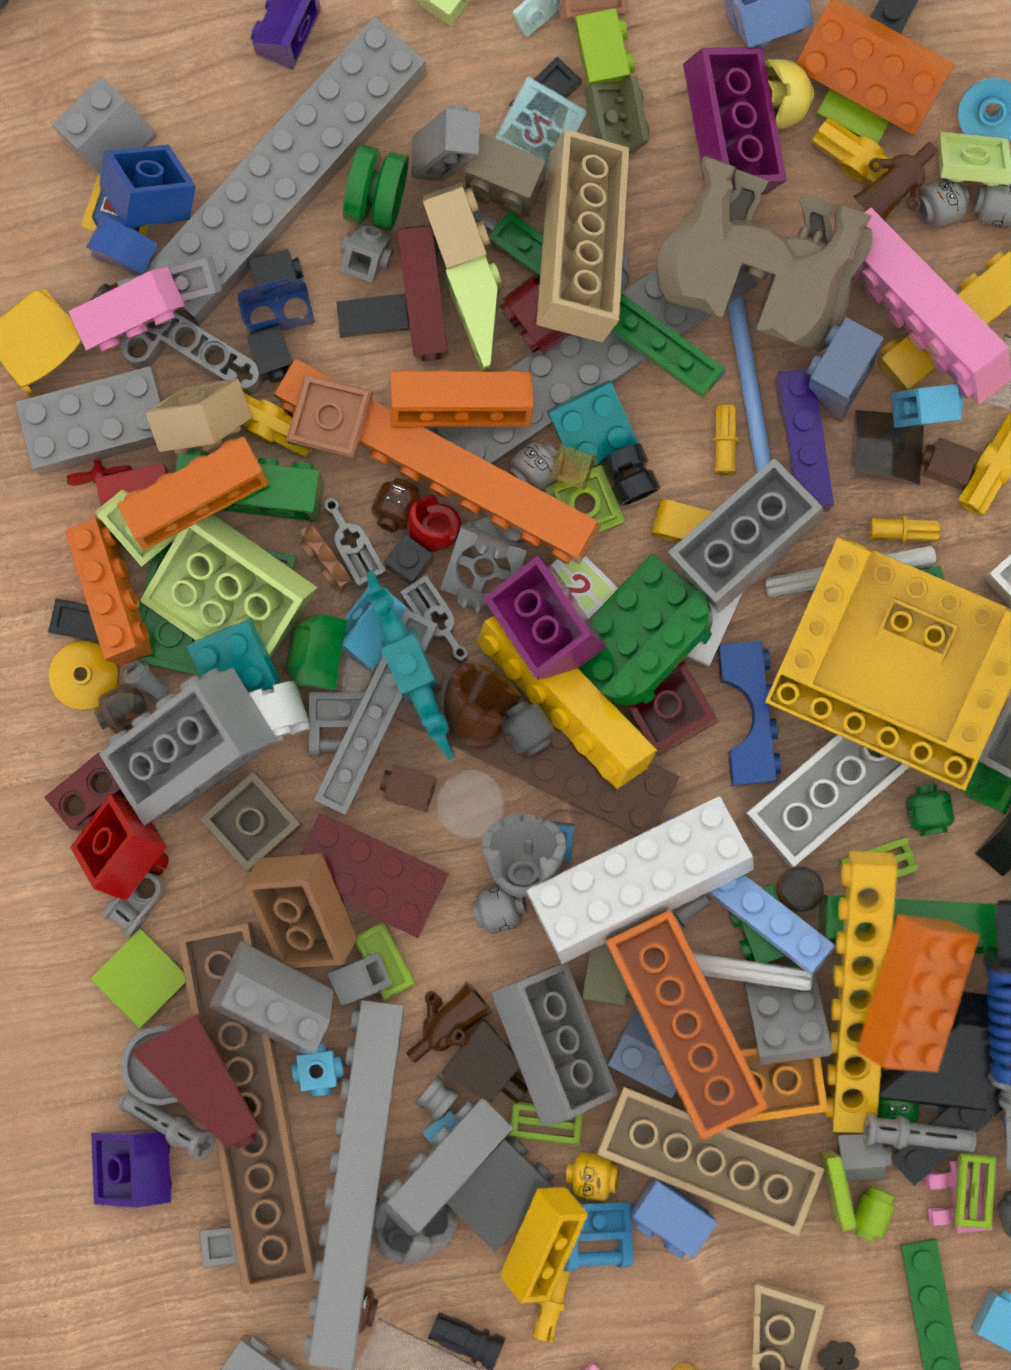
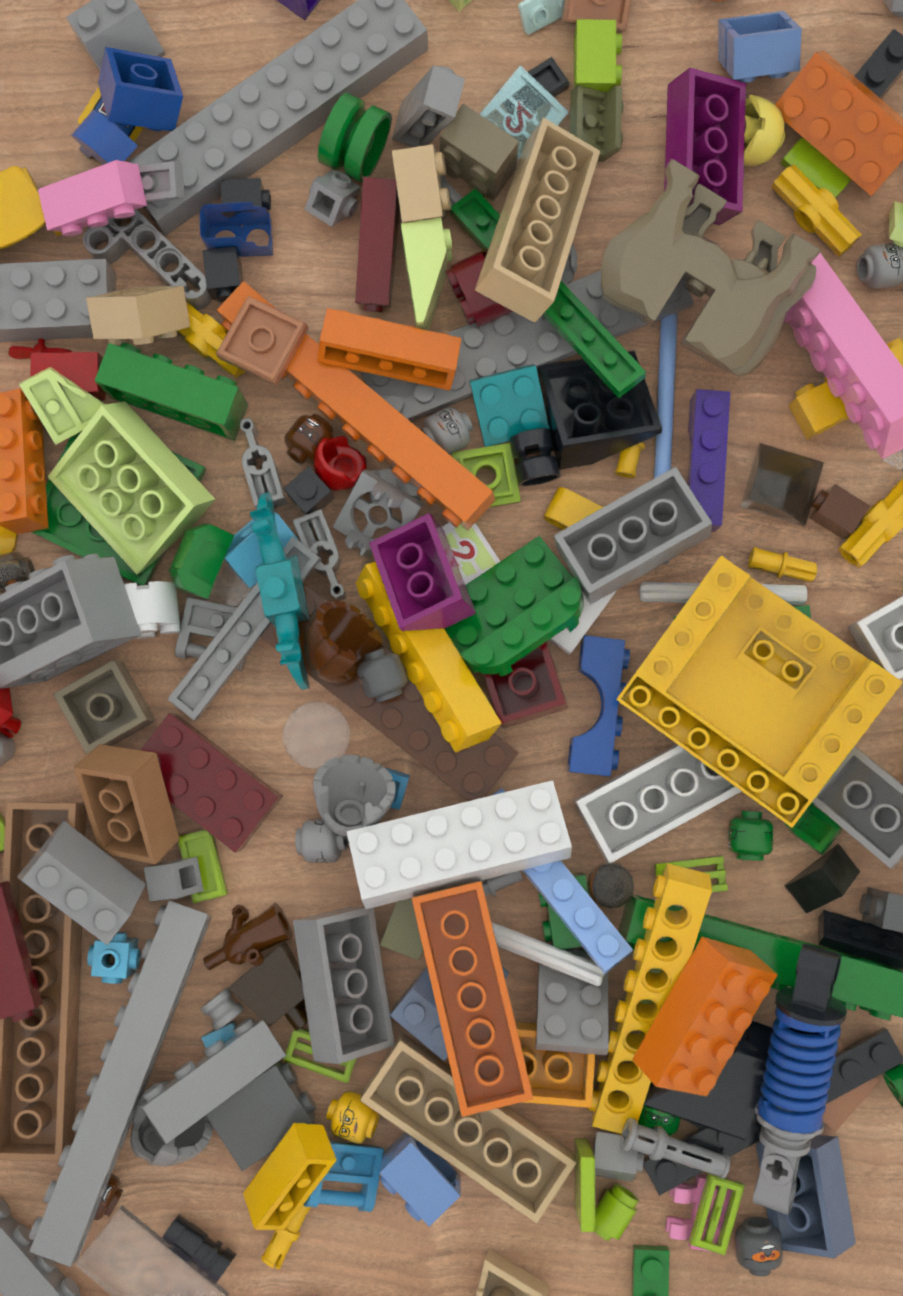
camera: 10 degrees right, 0 degrees up
(138, 674) = (34, 550): light grey pin -> none
(192, 493) = (110, 381): orange brick -> none
(239, 649) = (126, 541): teal plate -> none
(316, 546) = (236, 487): nougat plate -> none
(372, 315) = (325, 259): black tile -> none
(408, 787) = (259, 708): reddish brown brick -> none
(573, 466) = (482, 437): clear yellow plate -> none
(675, 422) = (589, 417): none -> black slope
(844, 366) = (761, 394): sand blue slope -> none
(903, 175) = (854, 229): reddish brown piece -> none
(927, 405) = (831, 449): medium azure brick -> none

